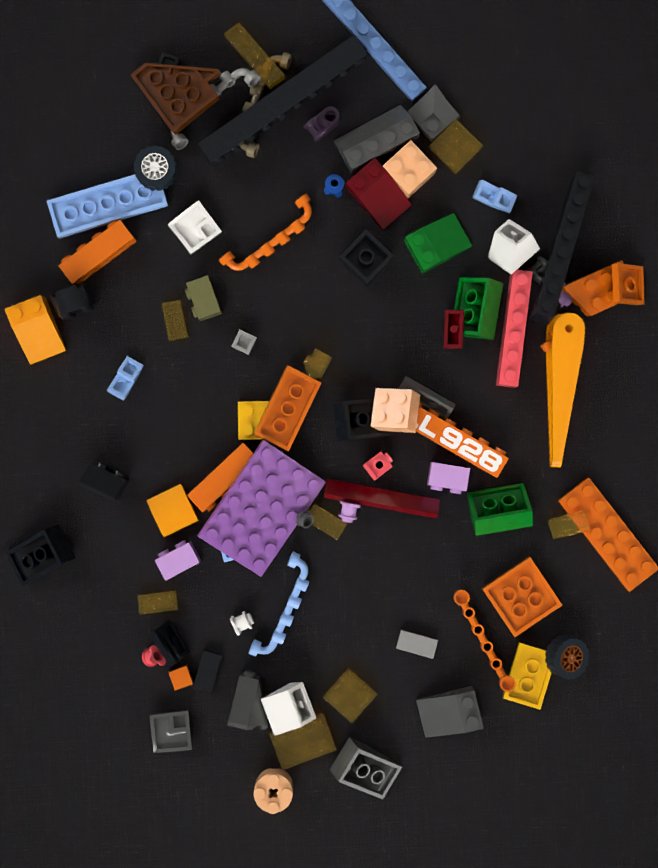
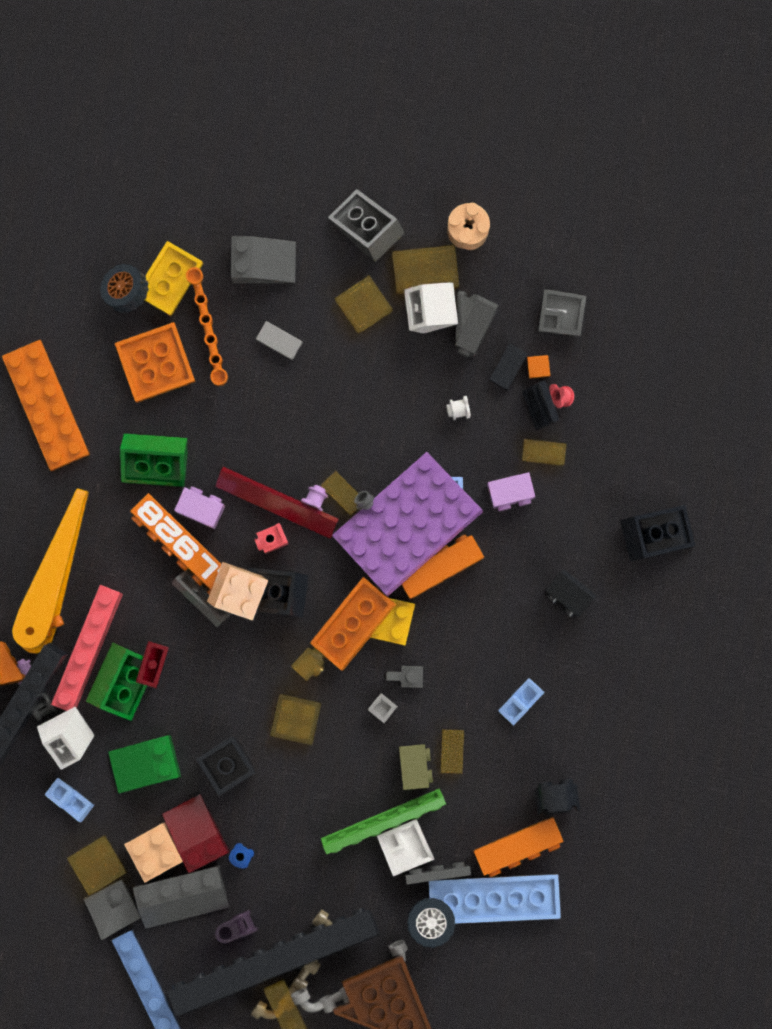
camera: 165 degrees left, 5 degrees down
(35, 329) = (605, 778): light orange slope -> none
(161, 212) = (437, 872): none -> dark grey plate
(172, 510) = (504, 545): light orange slope -> none
(219, 245) = (389, 819): none -> bright green plate
(228, 375) = (409, 676): none -> dark grey plate
(282, 238) = (313, 812): orange bar -> none
(286, 617) = (411, 401): light blue bar -> none
(317, 314) = (295, 719): none -> clear yellow plate
(569, 524) = (84, 425): clear yellow tile -> none

